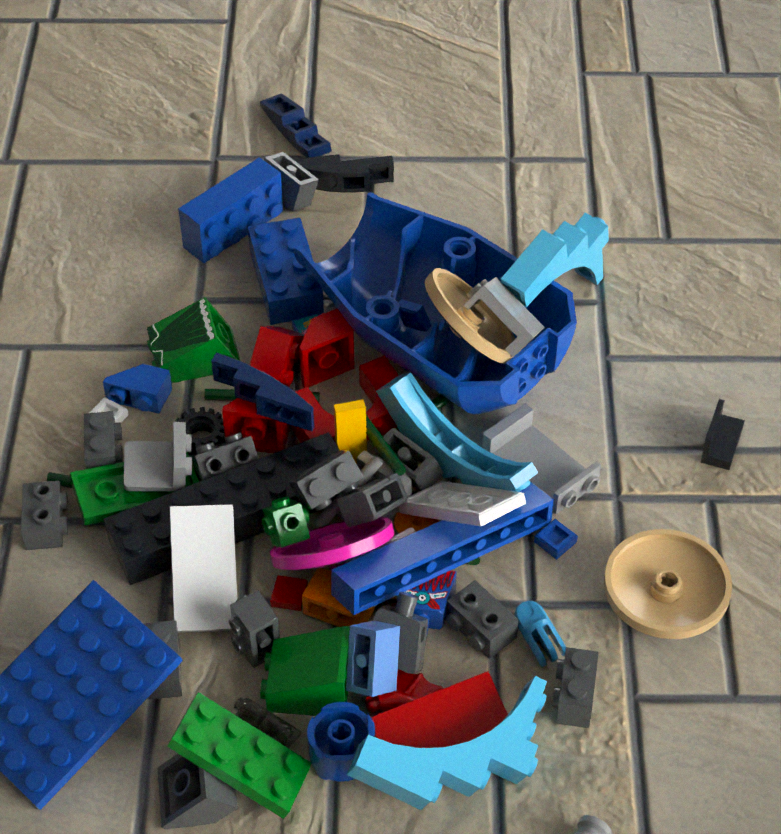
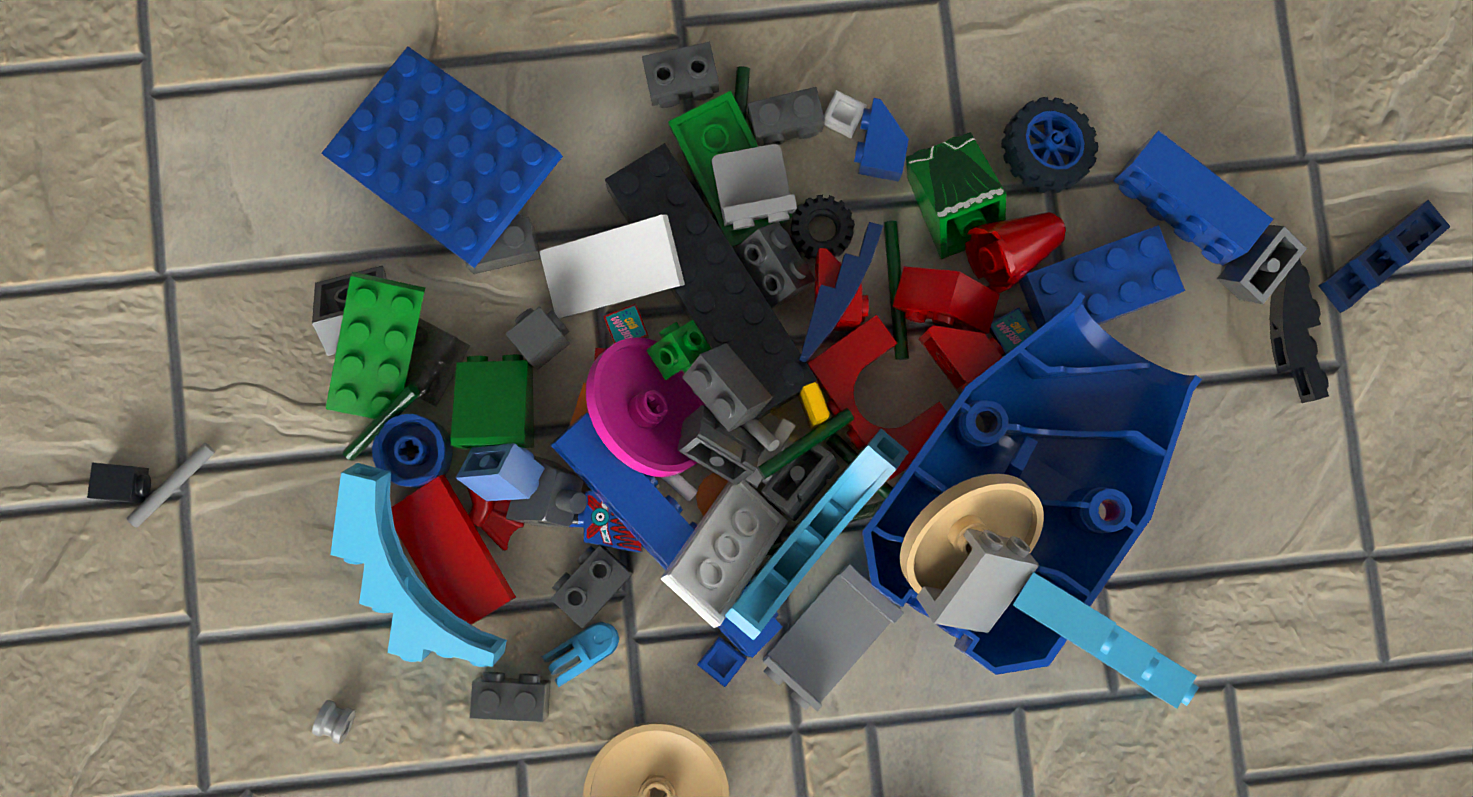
camera: 80 degrees right, 35 degrees up
(168, 286) = (1030, 160): none -> black wheel
(245, 313) = (1012, 247): none -> red cone
(255, 578) = (626, 324): none -> teal tile
(310, 766) = (394, 409): none -> dark green bar

